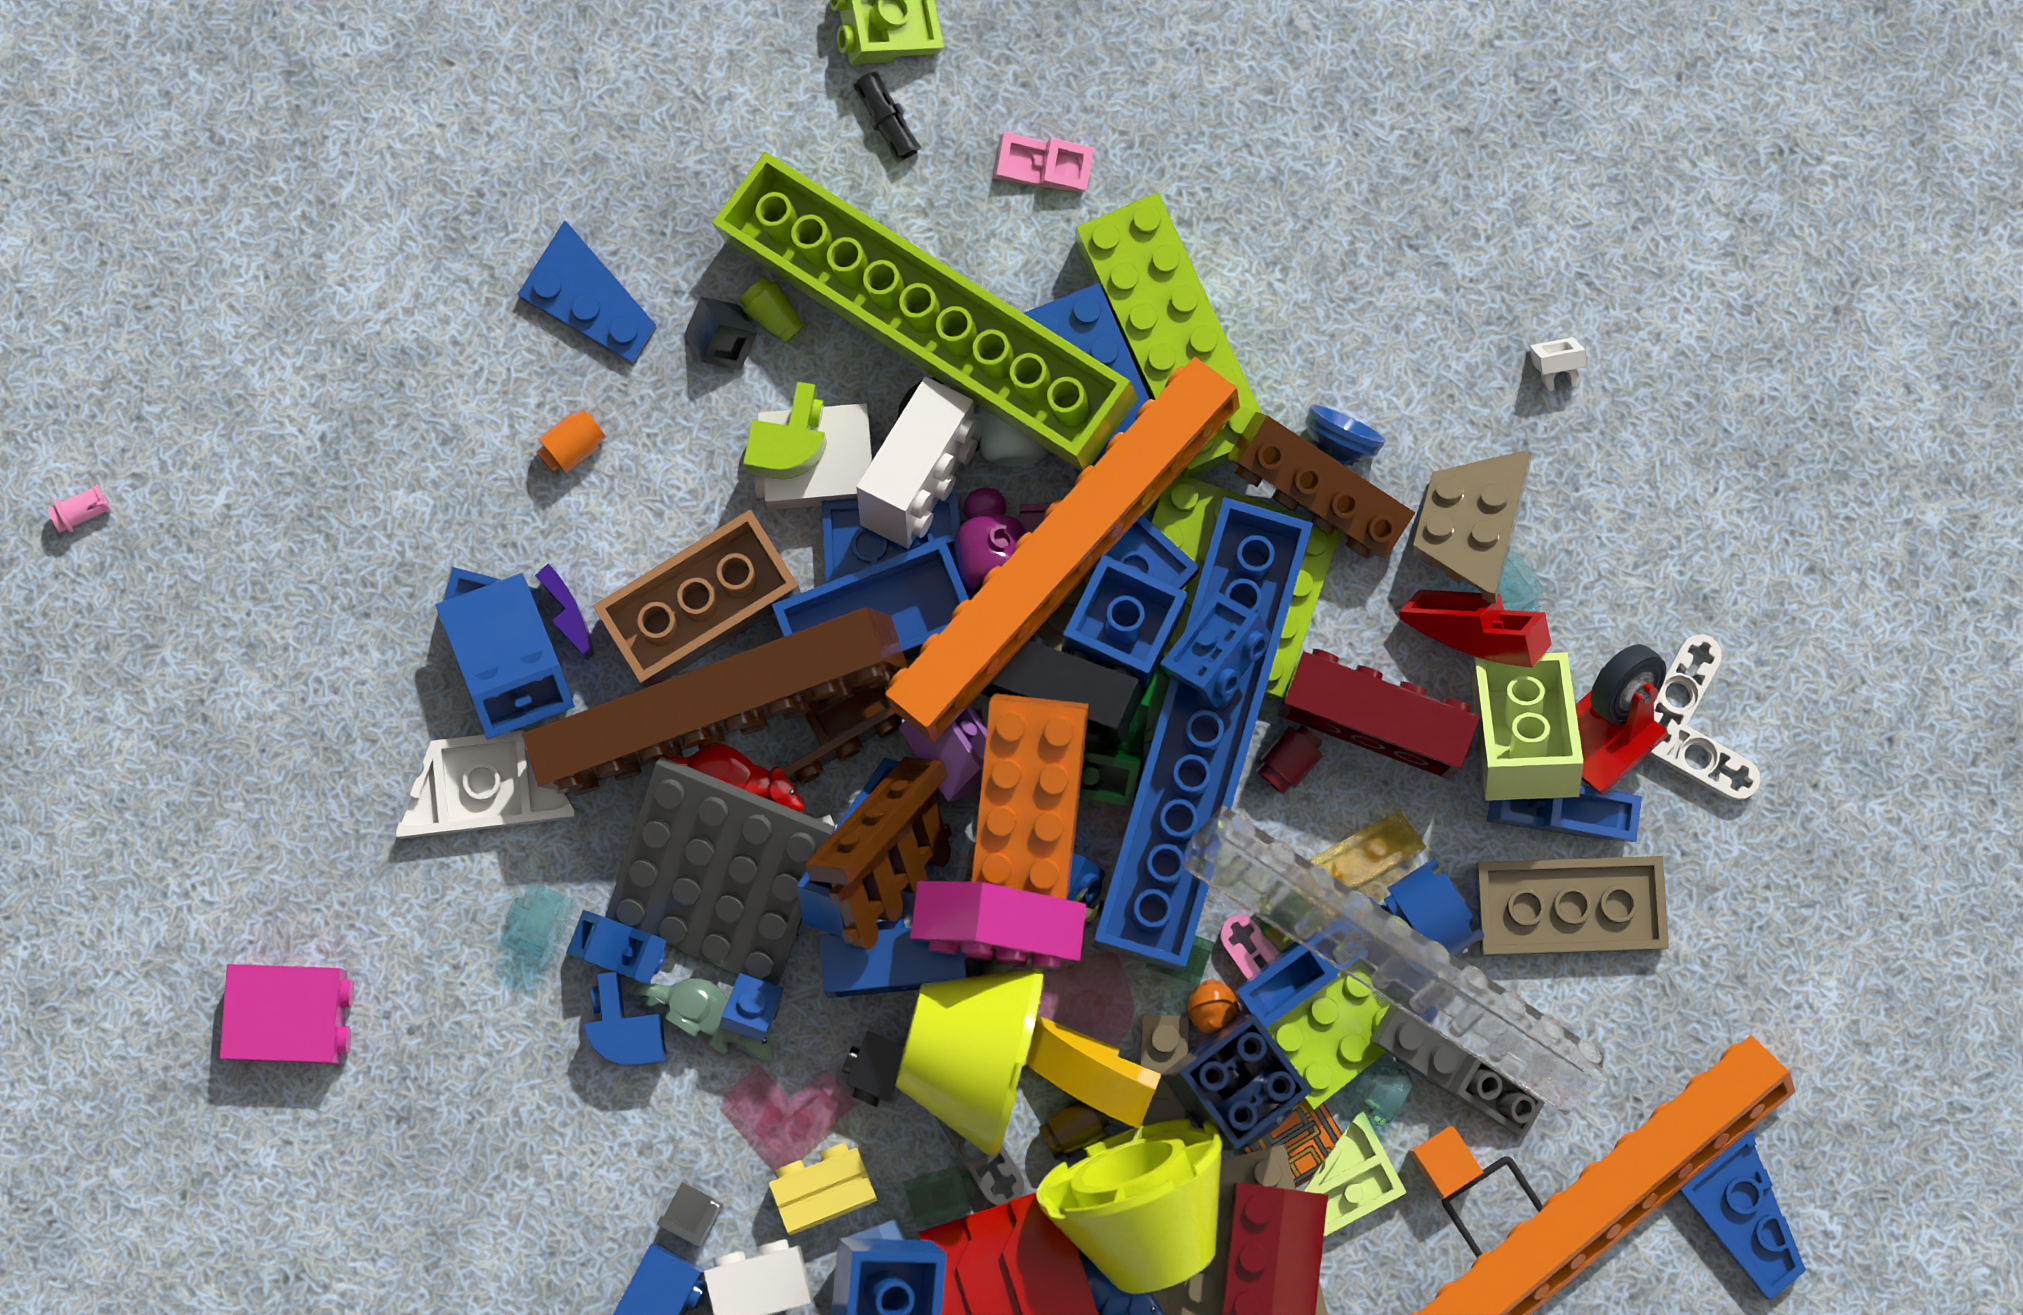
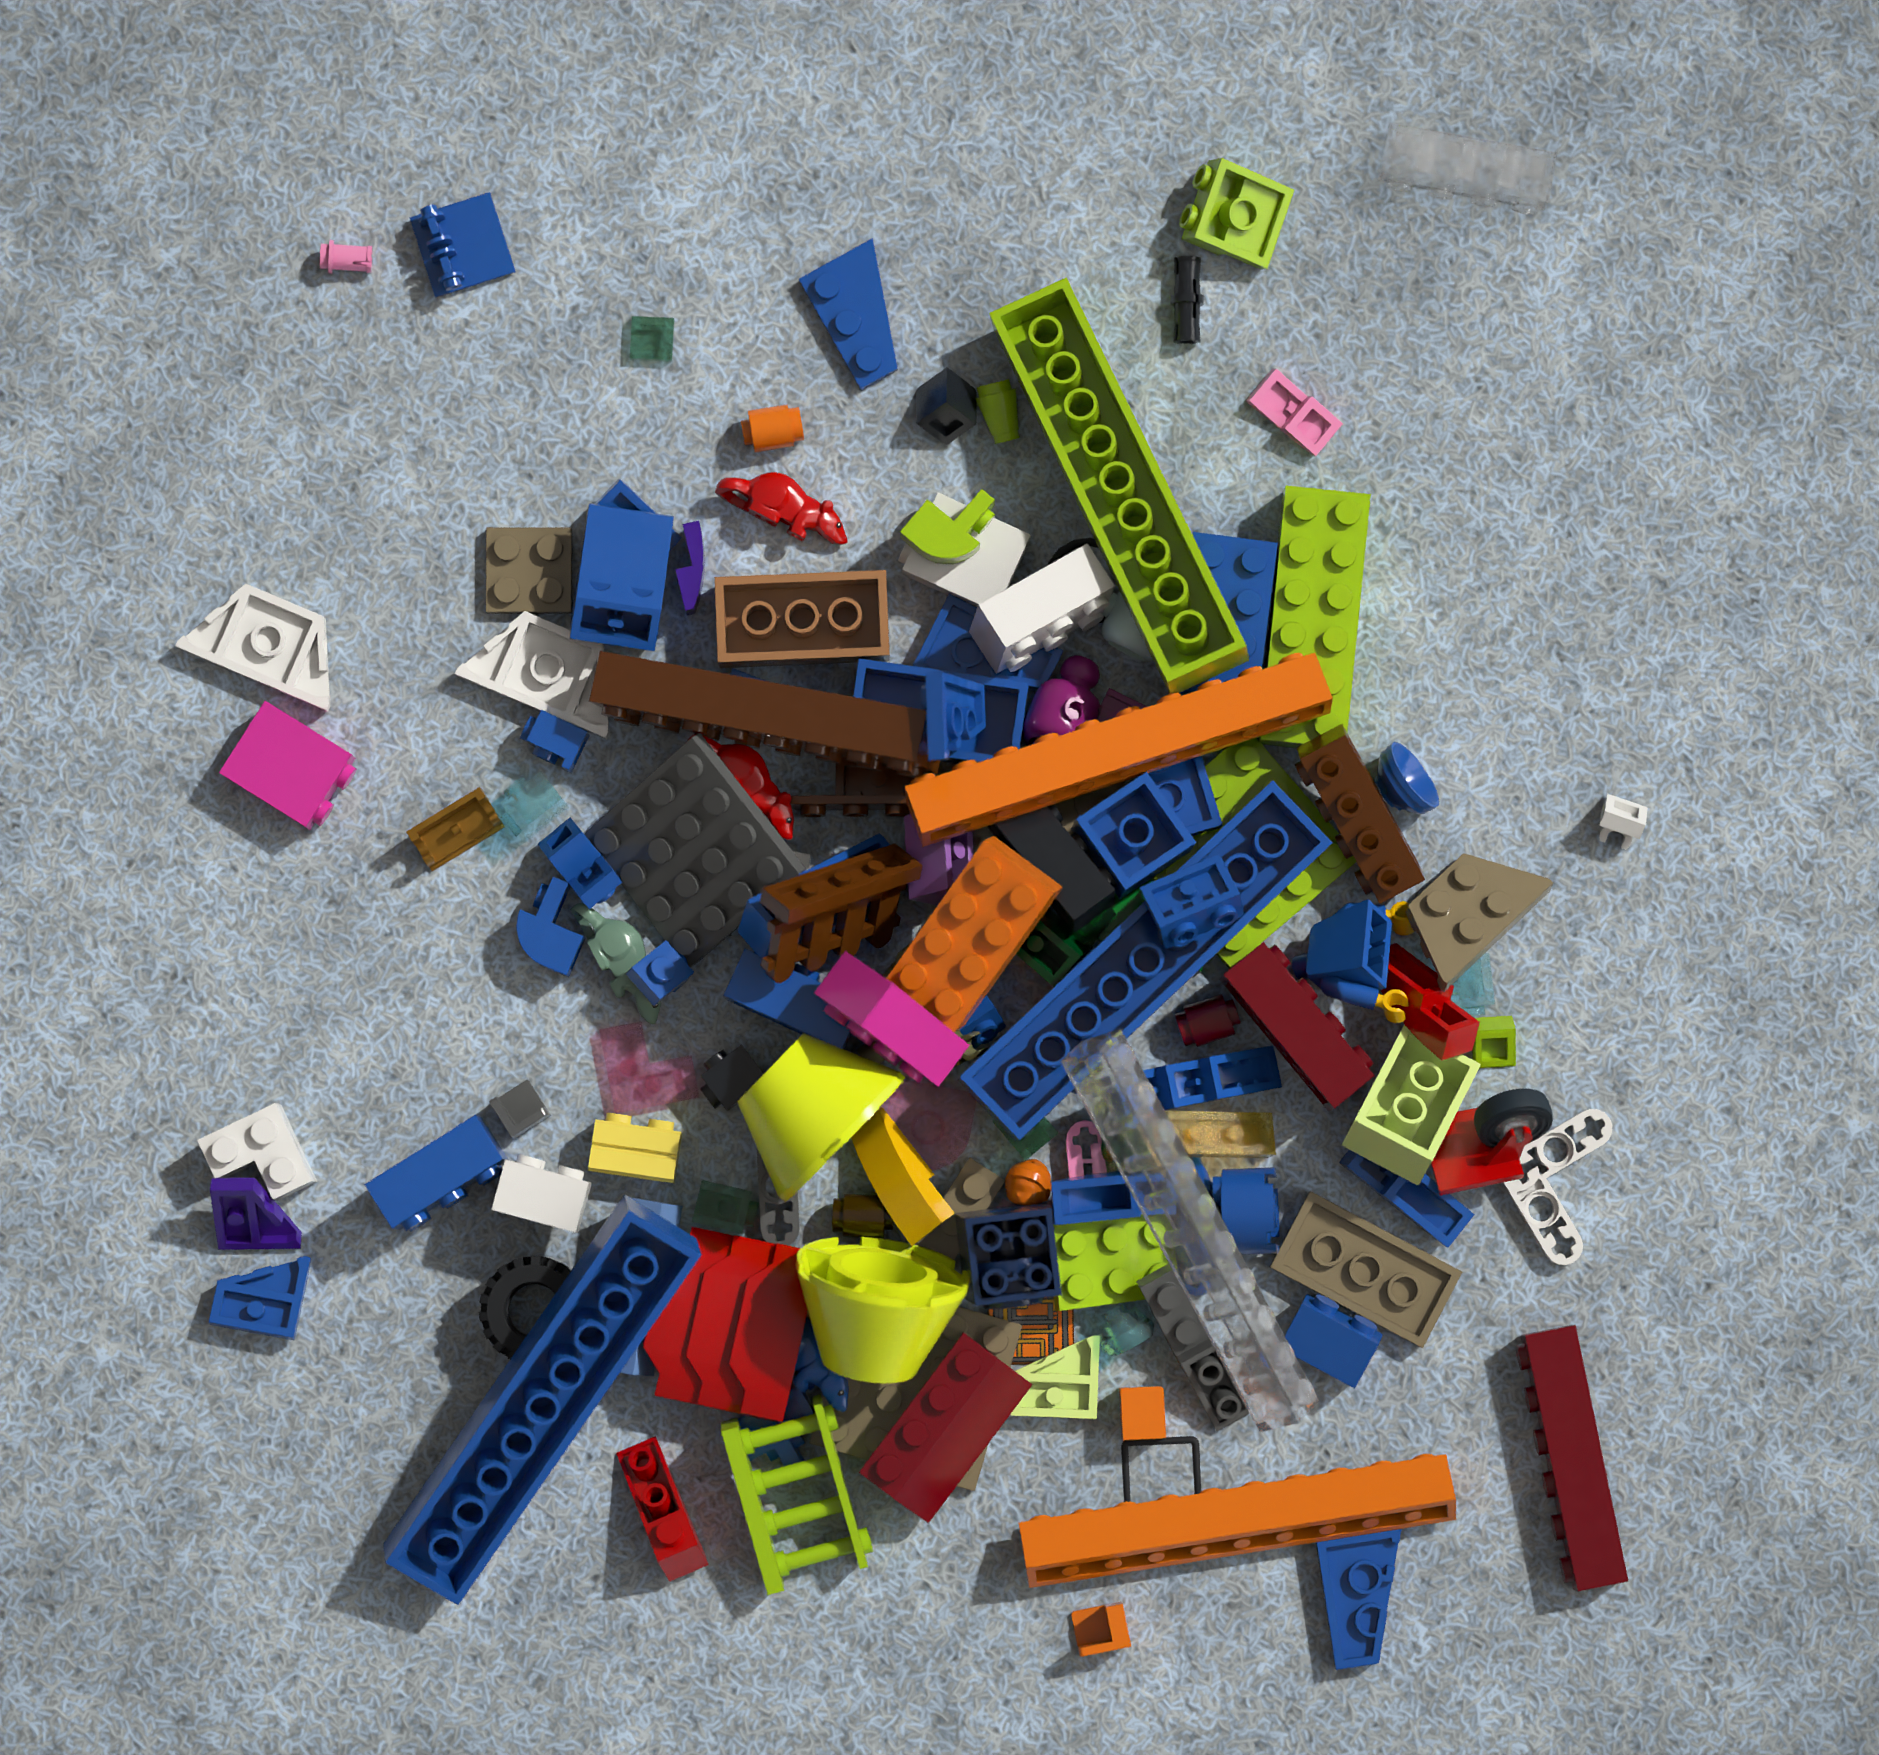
camera: 30 degrees right, 5 degrees up
(182, 436) = (462, 244): none -> blue hinge
(201, 910) = (266, 643): none -> white wing
(411, 424) = (652, 338): none -> clear green tile
(414, 701) = (529, 570): none -> dark tan plate
(479, 983) = (455, 829): none -> pearl gold hinge
(527, 844) = (555, 739): none -> blue brick
(614, 503) = (779, 498): none -> red animal
(889, 596) = (953, 712): none -> blue wing
(1331, 804) = (1215, 1077): none -> blue slope
(1389, 620) = (1351, 956): none -> blue torso
(1567, 627) = (1495, 1042): none -> lime slope
(1582, 988) = (1332, 1339): none -> blue brick
(1868, 970) = (1573, 1458): none -> dark red brick

